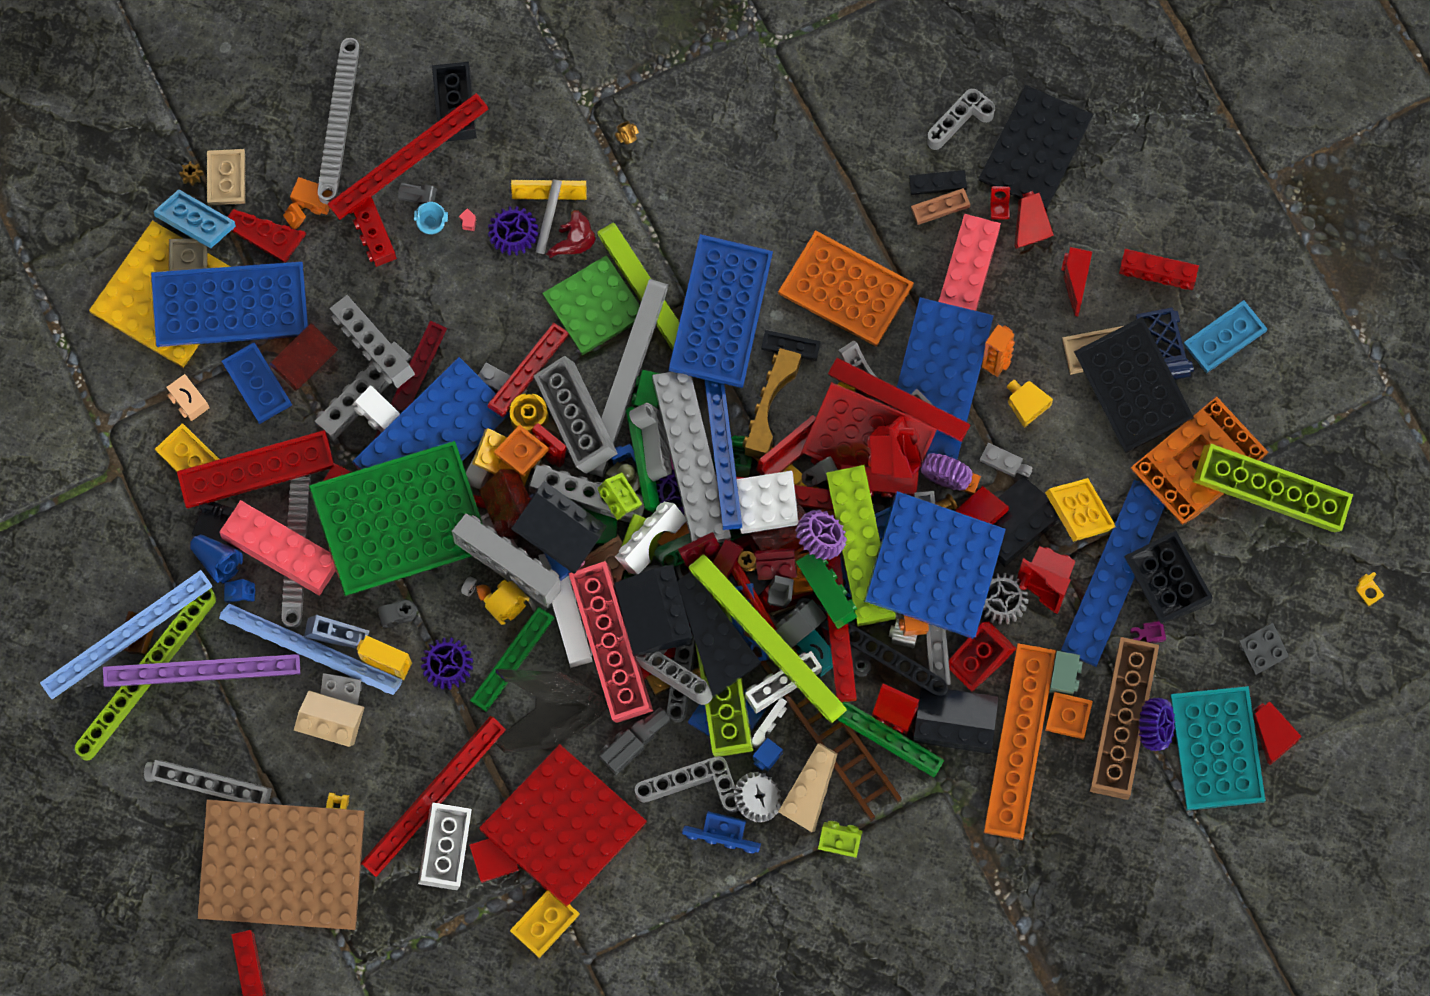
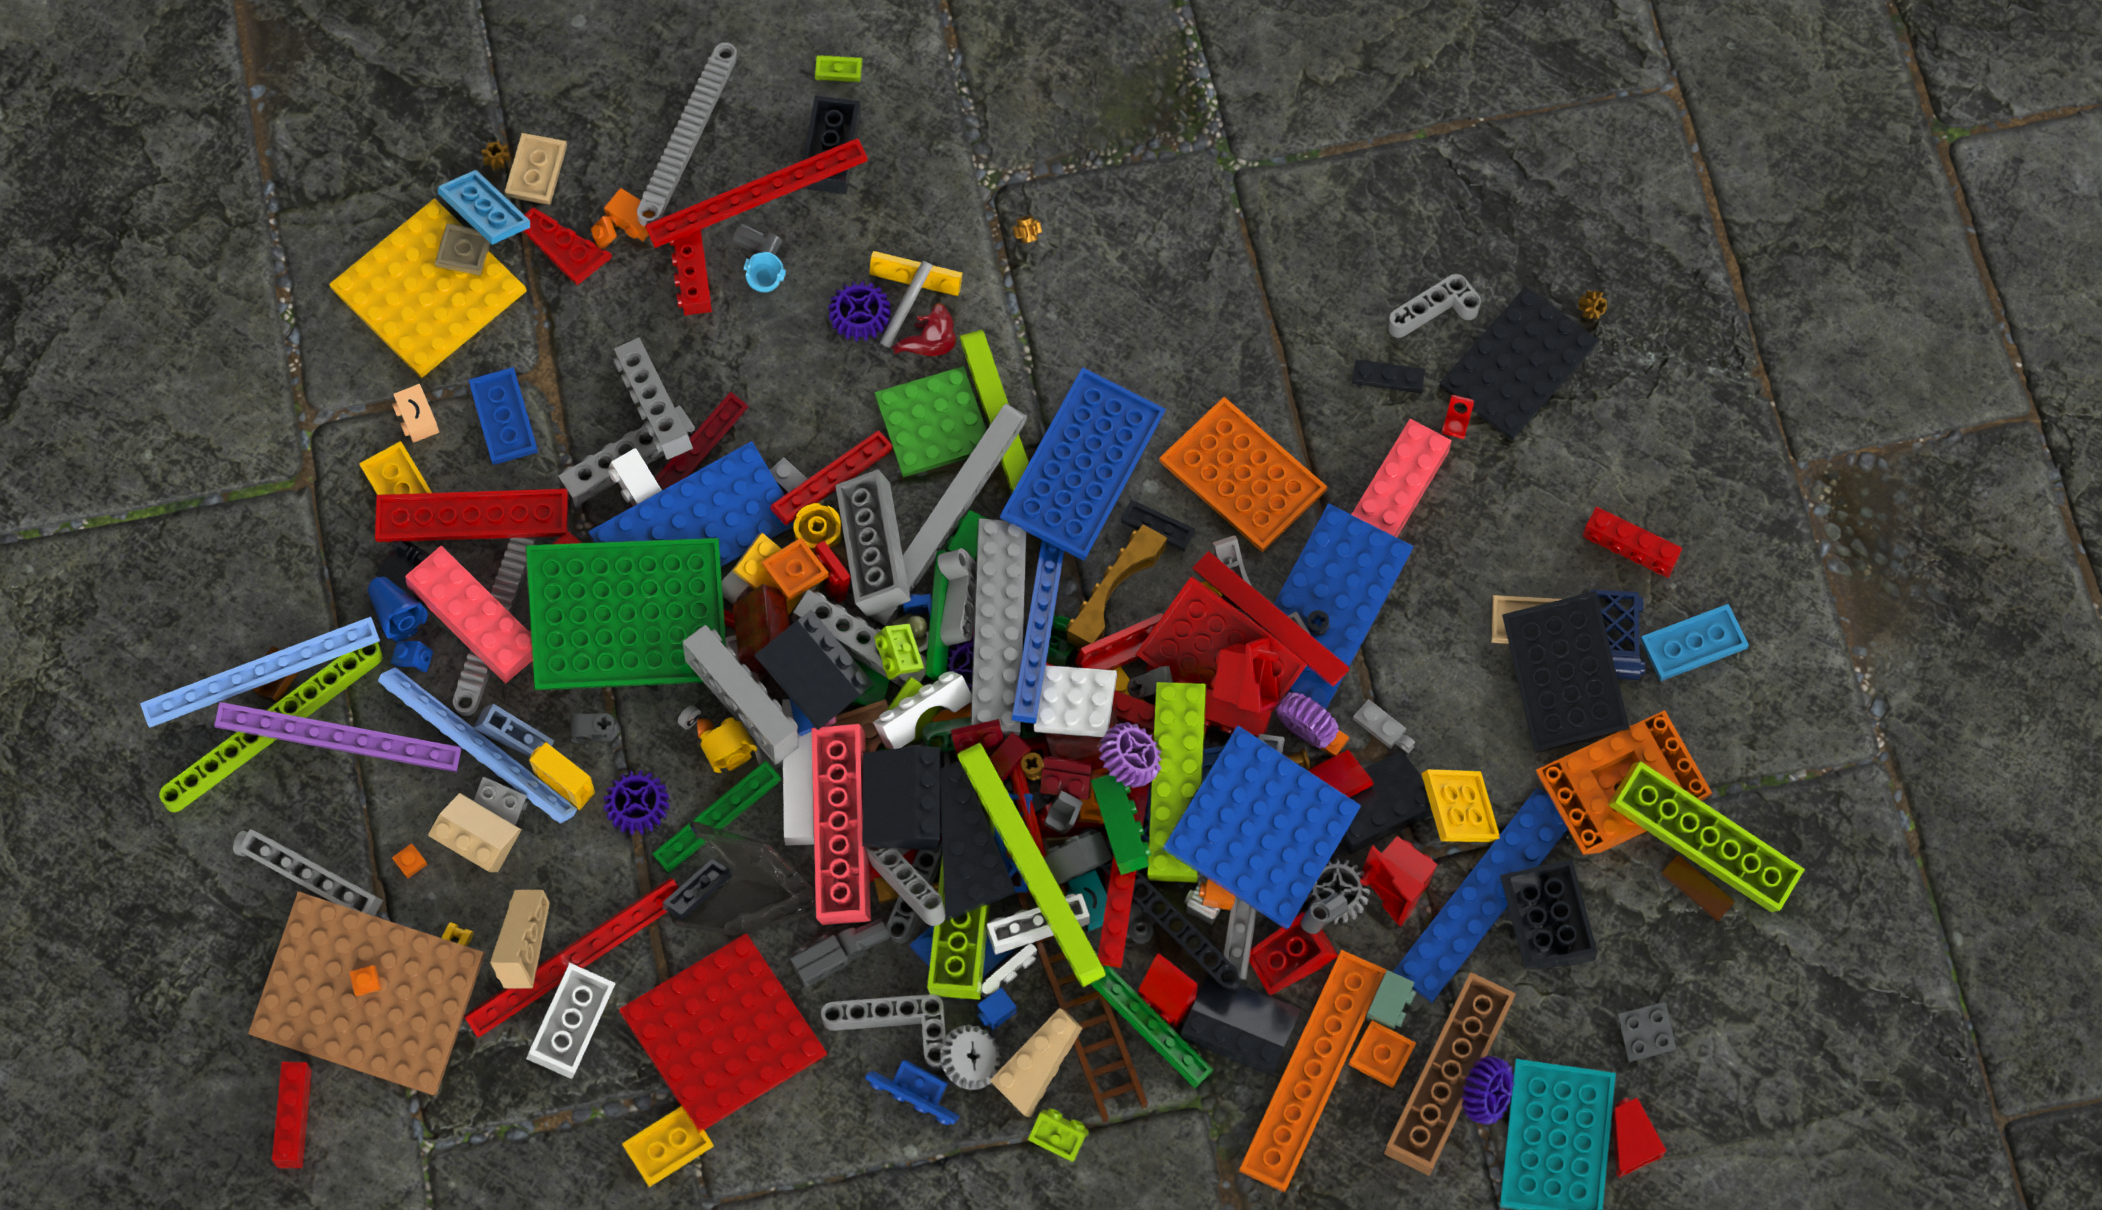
camera: 10 degrees right, 5 degrees down
(229, 304) = (496, 315): blue plate -> none
(278, 855) = (365, 980): none -> orange plate
(283, 752) = (409, 861): none -> orange plate
(303, 357) = (566, 398): clear red brick -> none
(389, 793) = (521, 939): none -> tan wedge
(443, 37) = (838, 68): none -> lime plate
(468, 220) = (809, 286): coral piece -> none
(491, 860) = (624, 1054): red tile -> none
(512, 720) = (696, 889): none -> black plate
(937, 387) = (1318, 614): none -> black bush
(940, 206) = (1384, 404): nougat plate -> none
(998, 350) = (1408, 589): orange brick -> none
(998, 619) = (1324, 912): none -> dark grey piece
(1027, 401) = (1430, 661): yellow torso -> none
(1031, 221) = (1490, 448): red slope -> none
(1076, 268) = (1530, 518): red slope -> none
(1081, 87) = (1592, 304): none -> pearl gold gear
(1151, 632) = (1512, 977): magenta plate -> none
(1274, 527) = (1698, 888): none -> reddish brown tile
(1367, 582) = (1796, 982): yellow bracket -> none

